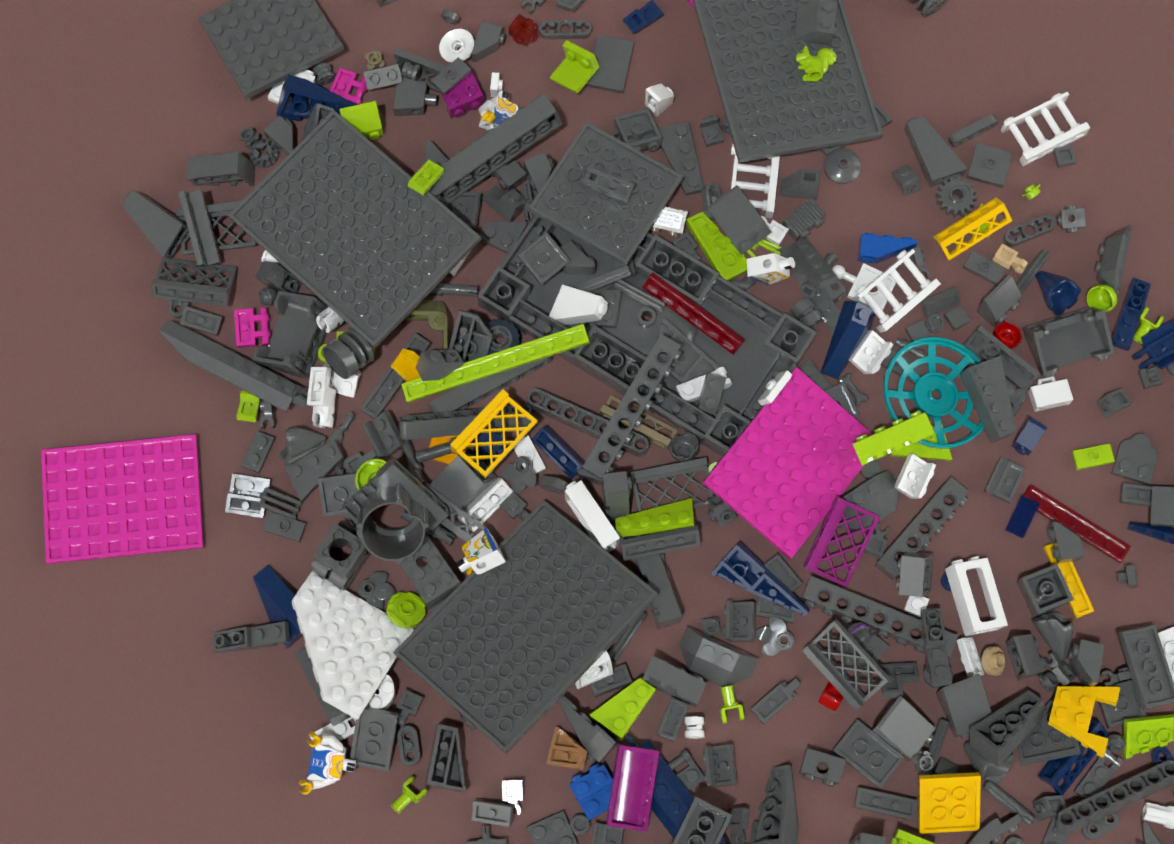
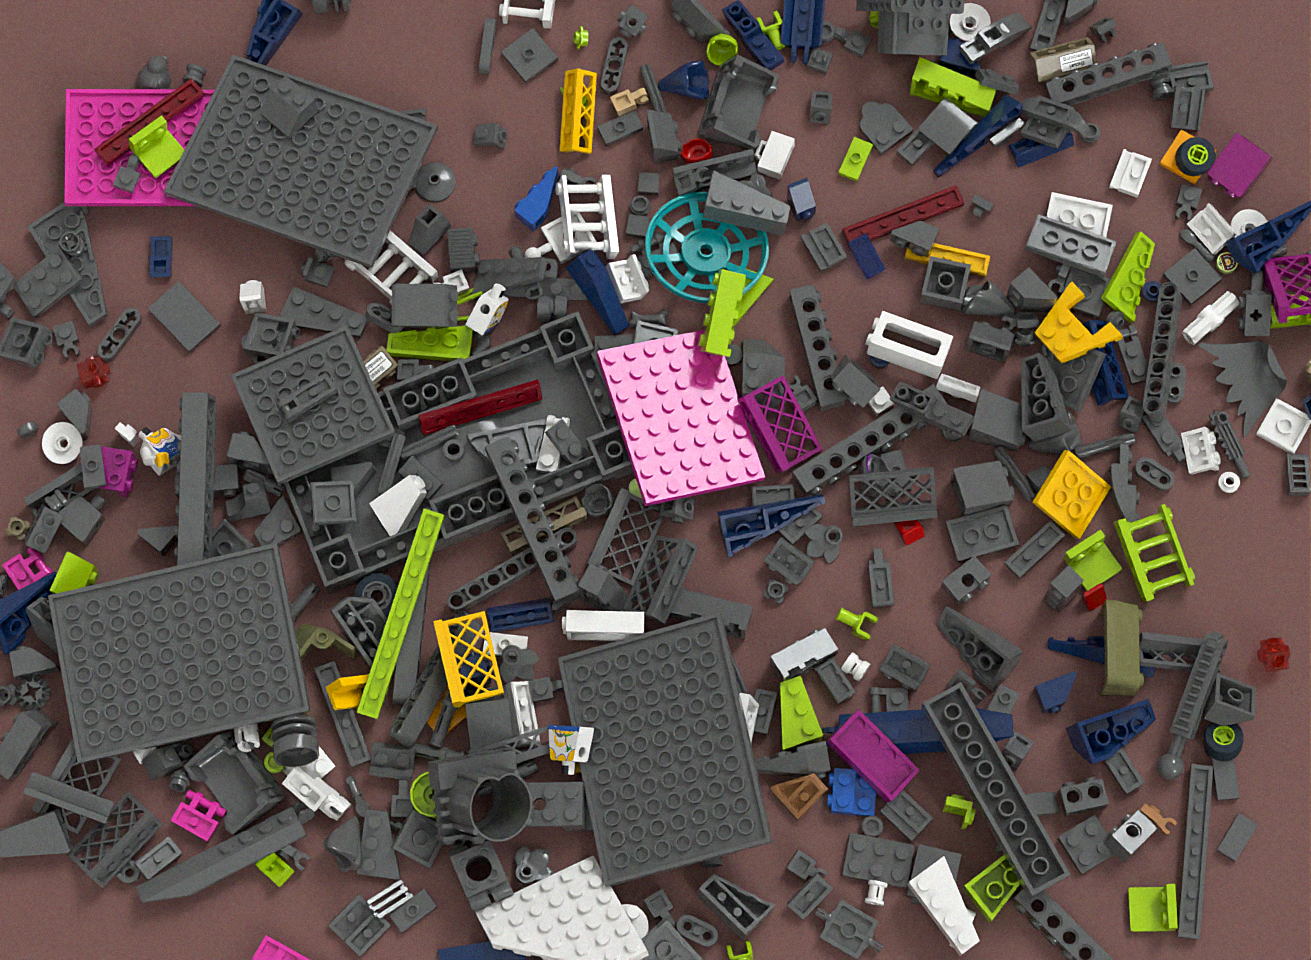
camera: 50 degrees left, 0 degrees up
(258, 452) = (323, 889): dark grey plate -> none
(405, 610) = (571, 850): lime tile -> none
(426, 177) = (182, 553): lime plate -> none
(438, 363) = (365, 664): dark grey slope -> none
(552, 484) = (549, 639): dark grey beam -> none
(575, 68) = (166, 351): lime bracket -> none
(657, 519) = (648, 569): lime wing -> none
(715, 659) = (807, 606): dark grey wedge -> none
(774, 387) = (603, 382): white plate -> none
(816, 65) = (329, 137): lime animal -> none
(898, 674) = (931, 457): dark grey plate -> none
(914, 477) = (767, 321): white bracket -> none
(928, 762) = (1026, 490): dark grey plate -> none
(932, 152) = (483, 96): dark grey slope -> none
(941, 301) = (625, 186): dark grey tile -> none
(959, 188) = (534, 95): dark grey gear -> none
(993, 661) = (974, 371): tan plate -> none

